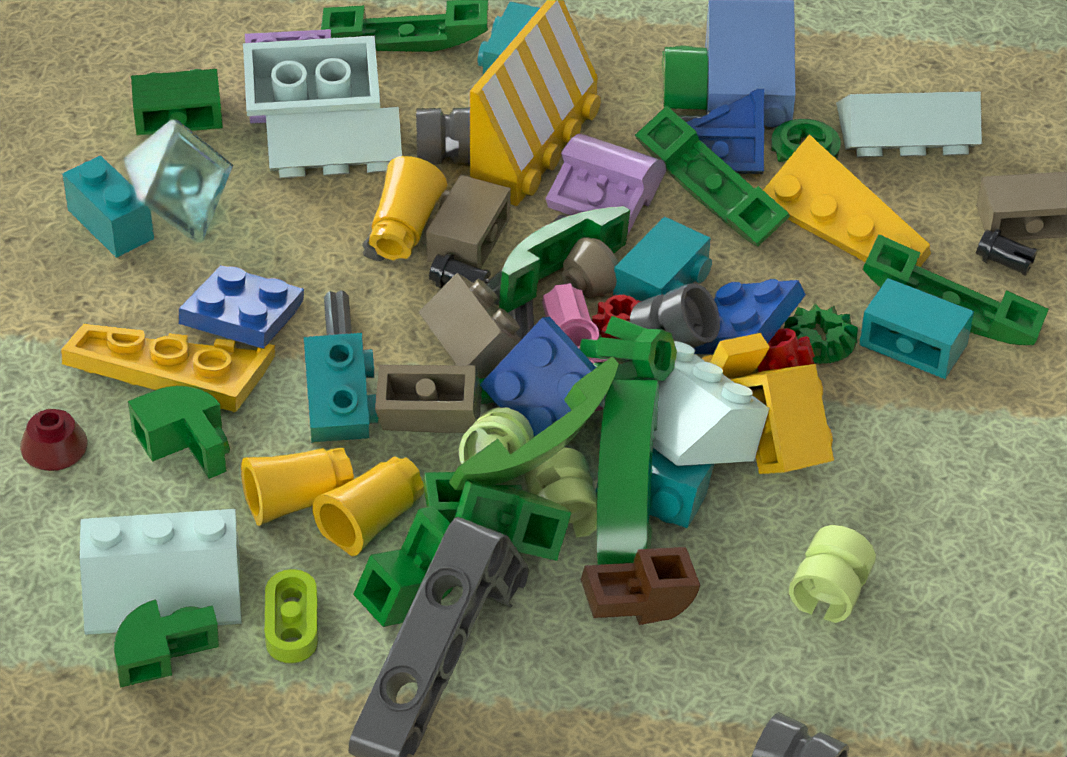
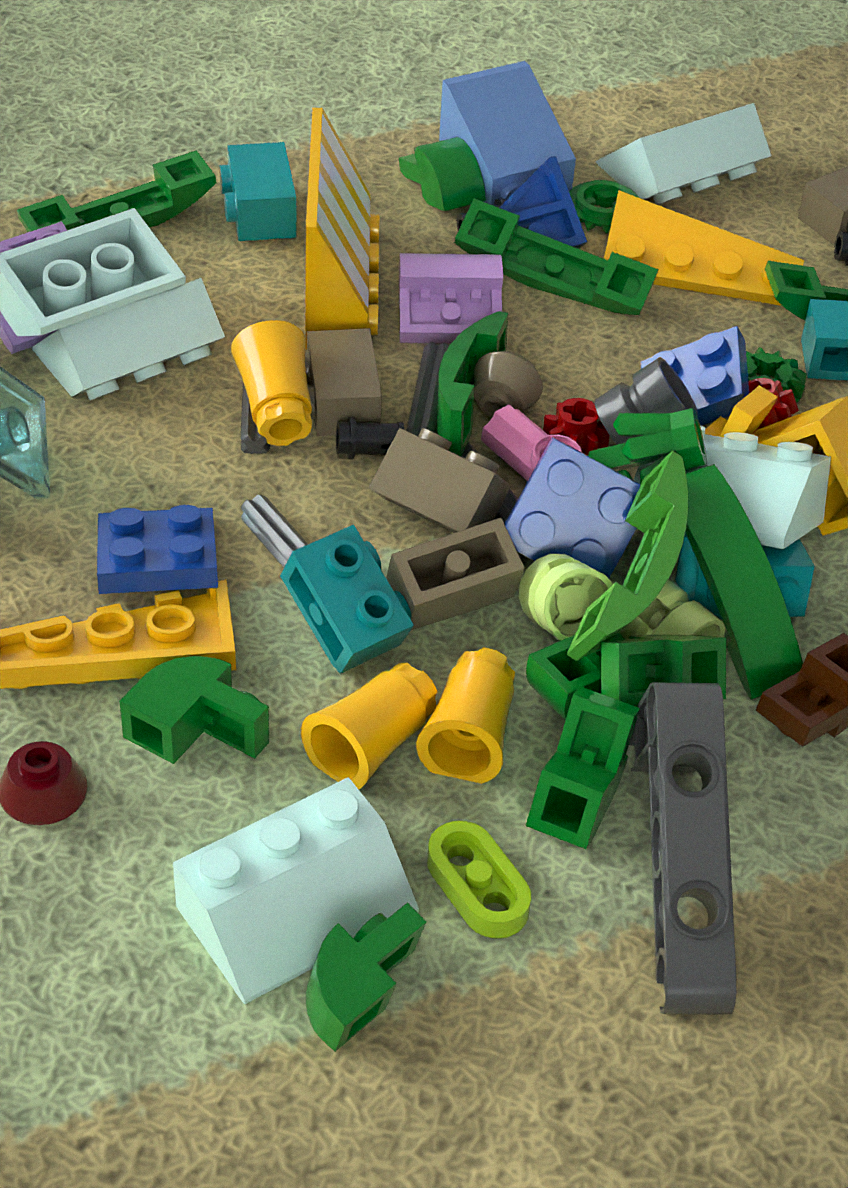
camera: 30 degrees left, 0 degrees up
(443, 135) = (259, 295): dark grey wheel -> none
(663, 261) = (575, 358): teal brick -> none

